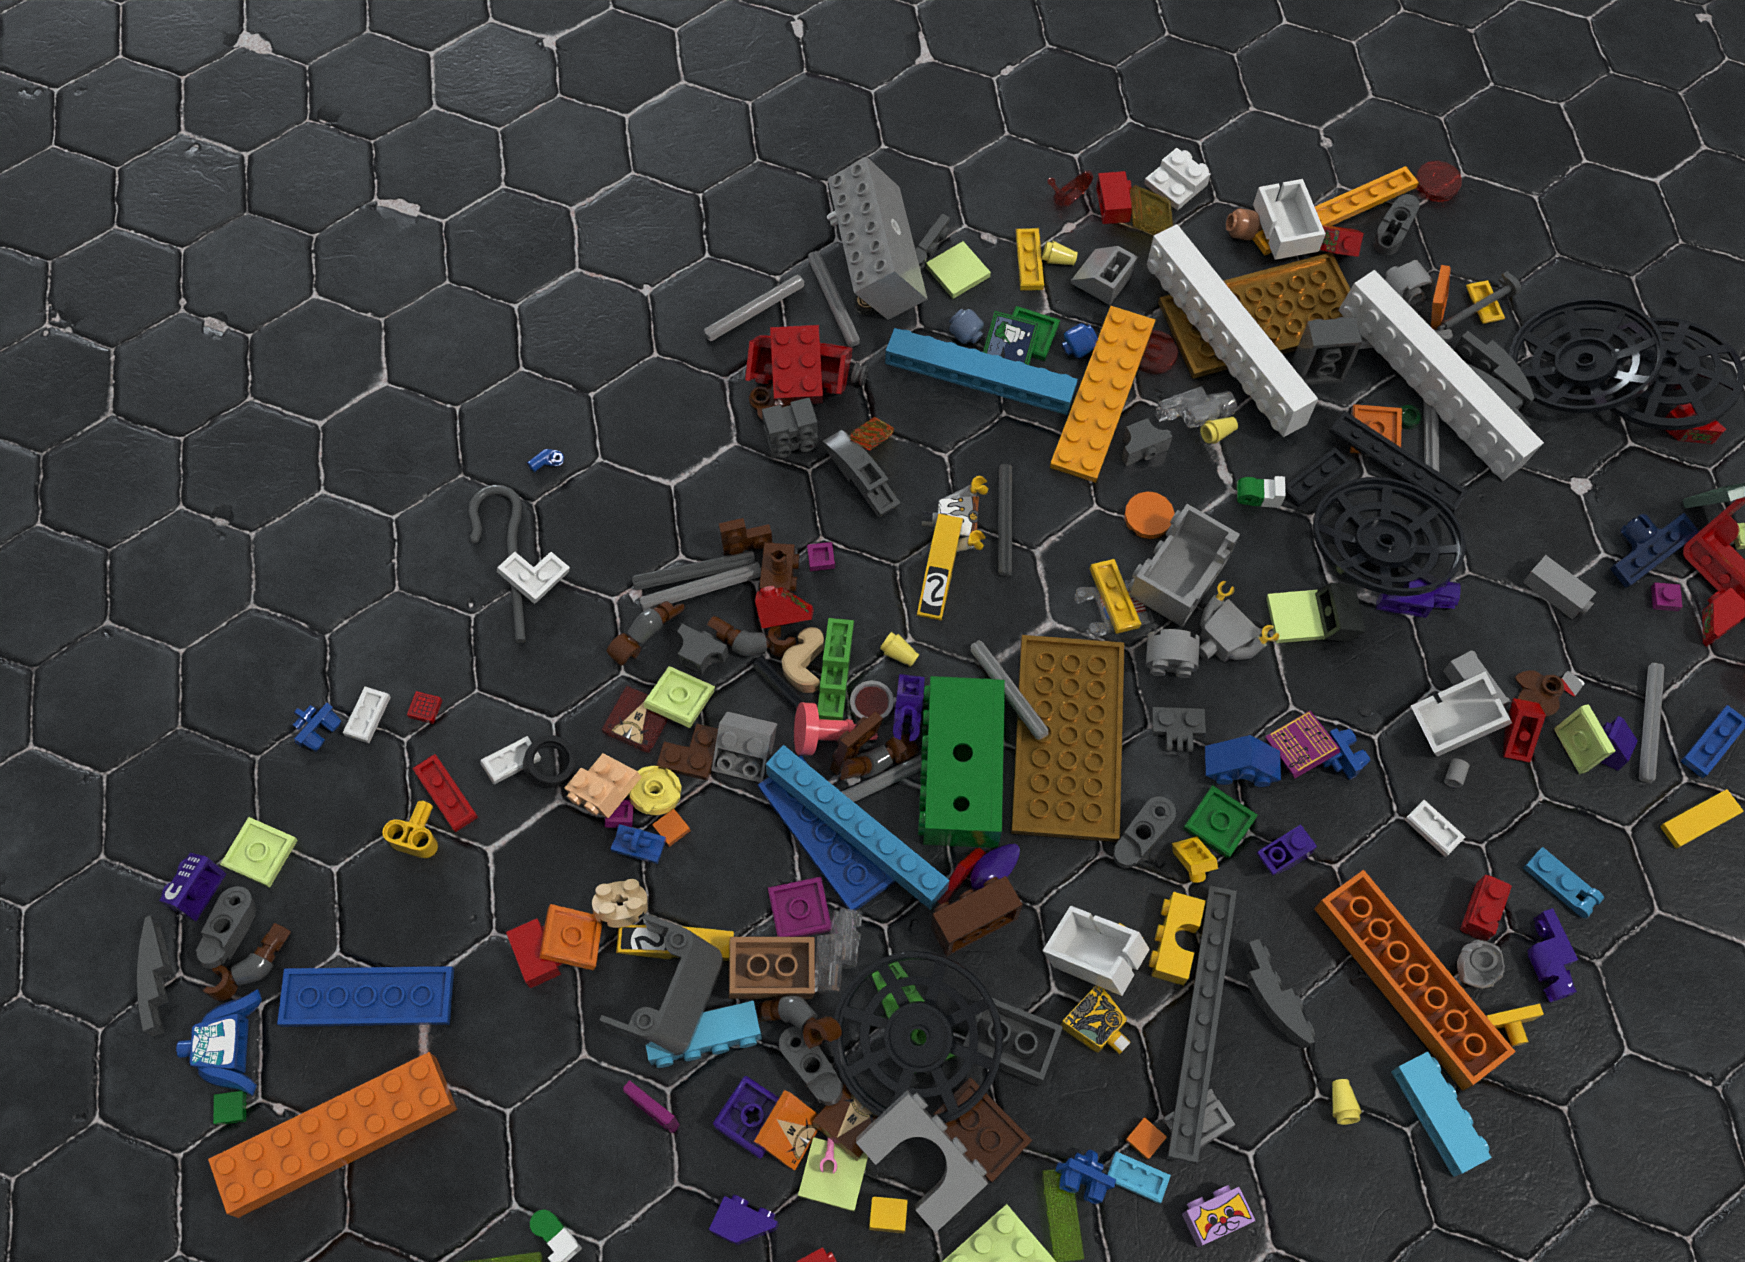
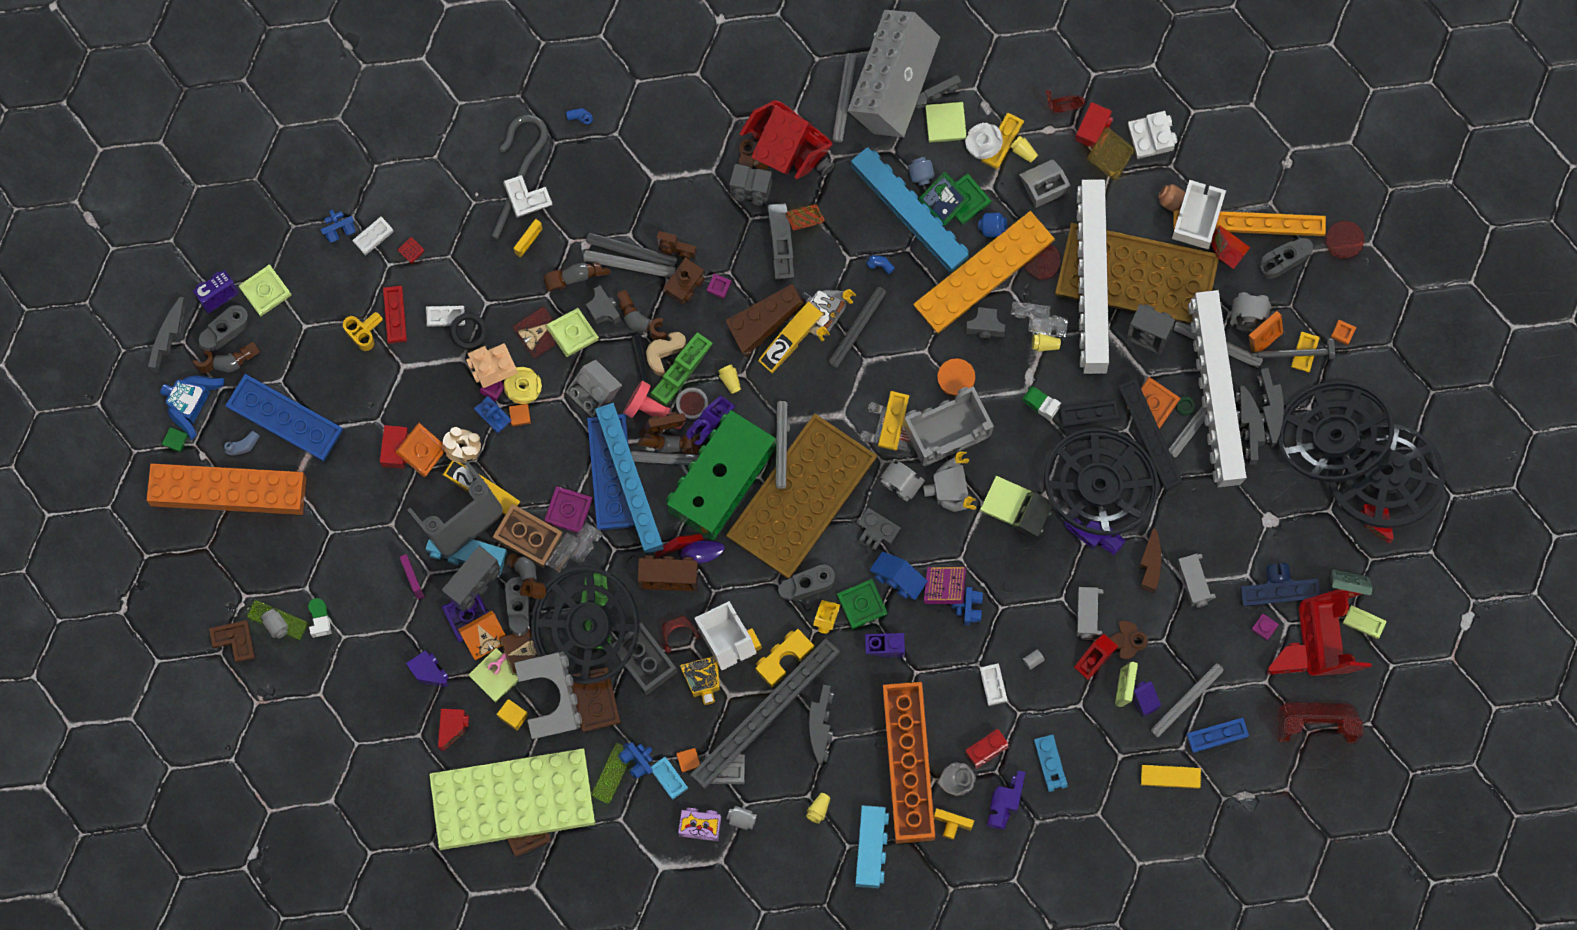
camera: 35 degrees right, 10 degrees up
(327, 1065) = (242, 446): none -> sand blue arm
(562, 619) = (528, 238): none -> yellow tile
(693, 760) = (556, 378): reddish brown plate -> none
(736, 1063) = (471, 579): none -> dark grey brick
(753, 307) = (784, 75): light grey axle -> none
(781, 607) = (669, 309): red slope -> none
(895, 564) = (764, 318): none -> reddish brown wedge
(985, 438) = (882, 261): none -> blue arm
(1012, 266) = (984, 141): none -> white tile
(1015, 981) = (678, 622): none -> clear red helmet
(1262, 1174) = (741, 818): none -> light grey brick
(1463, 715) = (1055, 627): white piece -> none
(1501, 593) = (1151, 563): none -> reddish brown slope
(1505, 262) = (1343, 332): none -> orange tile
(1572, 683) = (1155, 646): light grey sticker -> none

